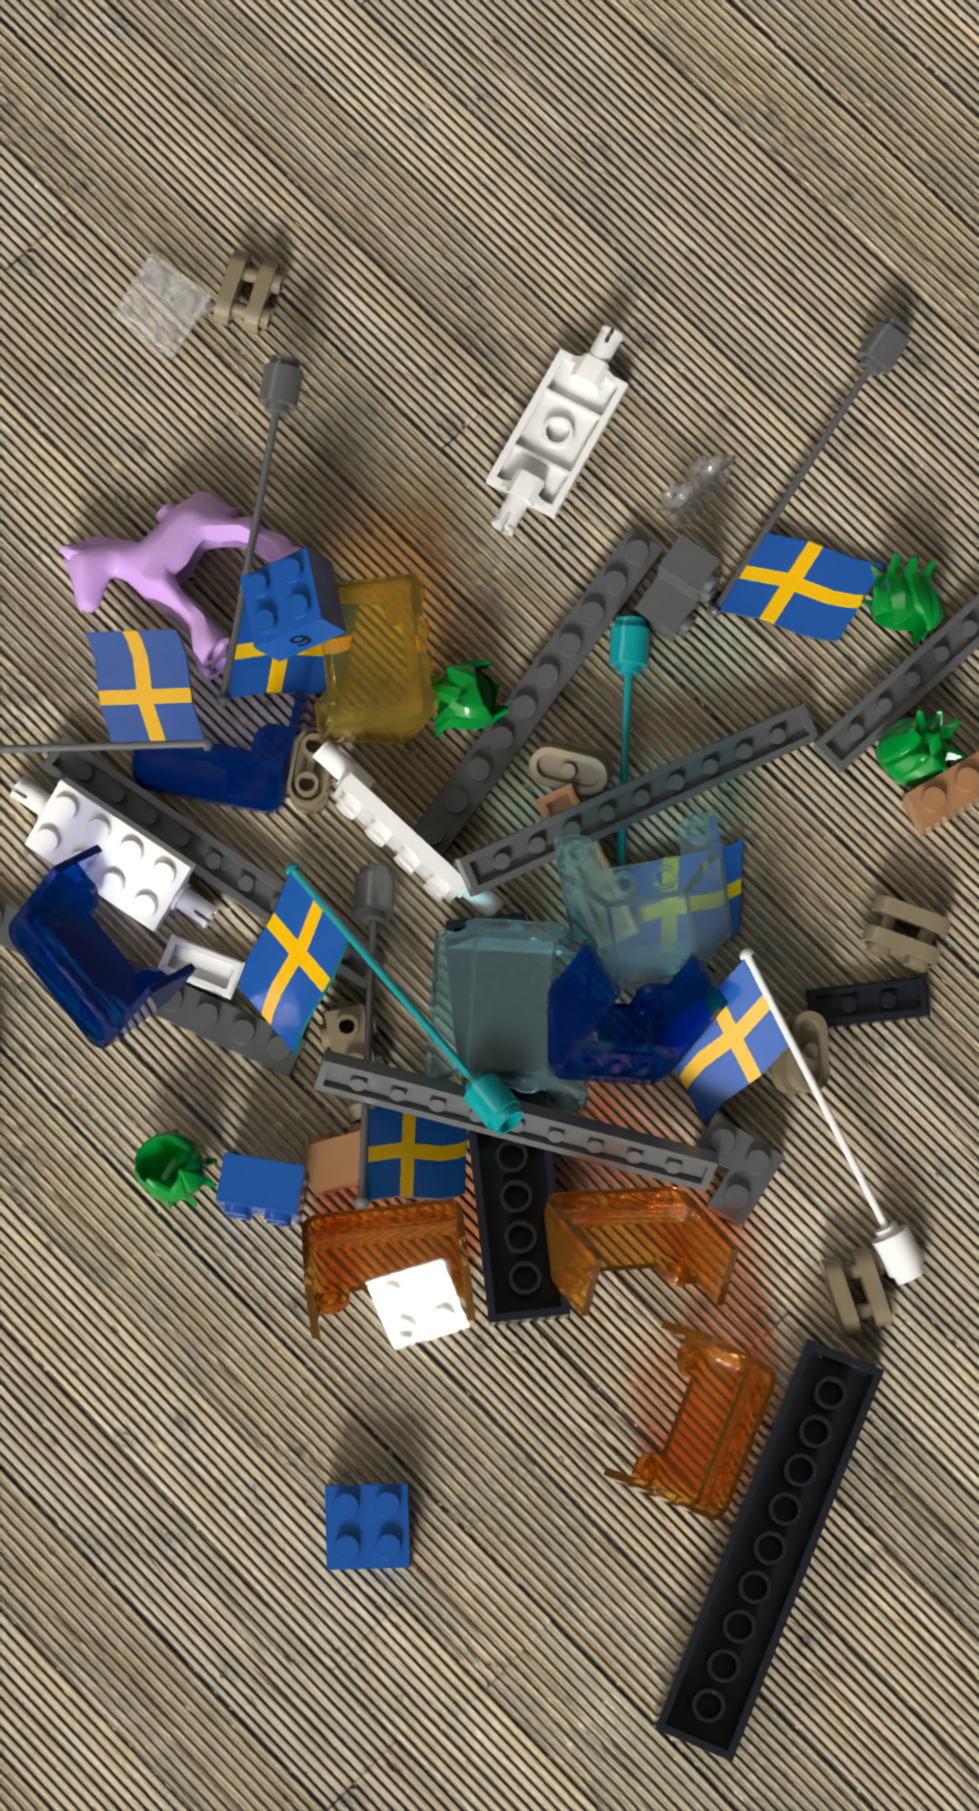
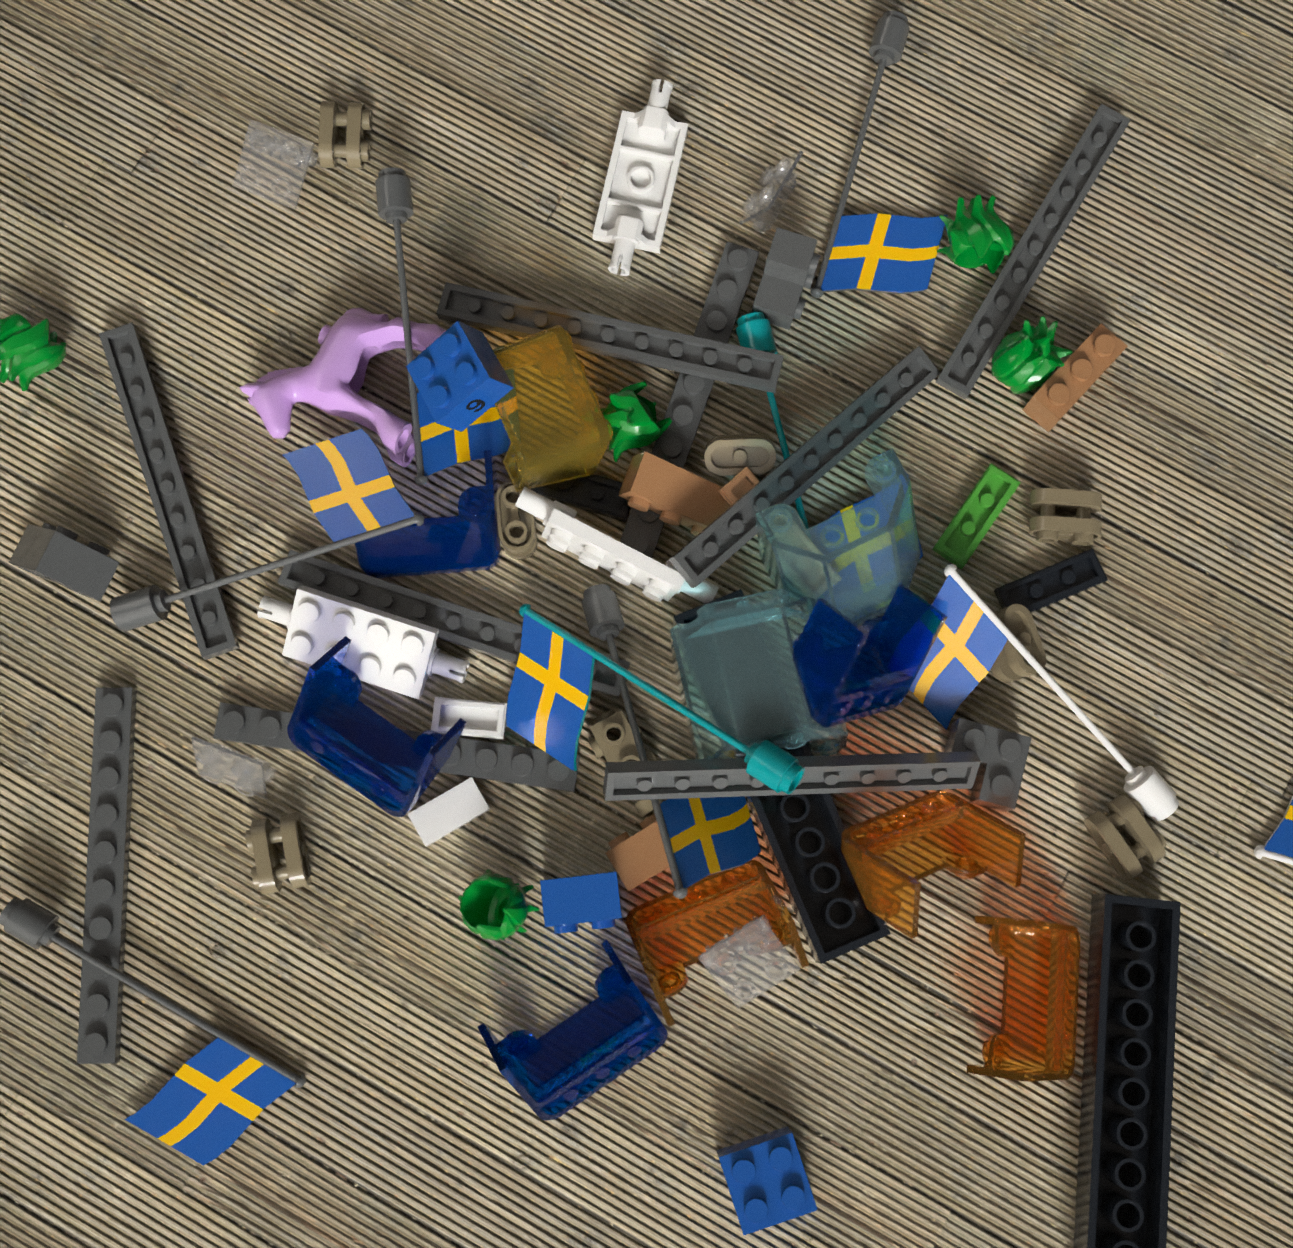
camera: 20 degrees left, 0 degrees up
(152, 1059) = (449, 811): none -> white tile
(221, 1343) = (583, 1049): none -> clear blue windscreen
(402, 765) = (589, 494): none -> black tile
(472, 600) = (614, 337): none -> dark grey plate
(484, 789) = (672, 493): none -> medium nougat brick
(810, 905) = (976, 516): none -> bright green tile

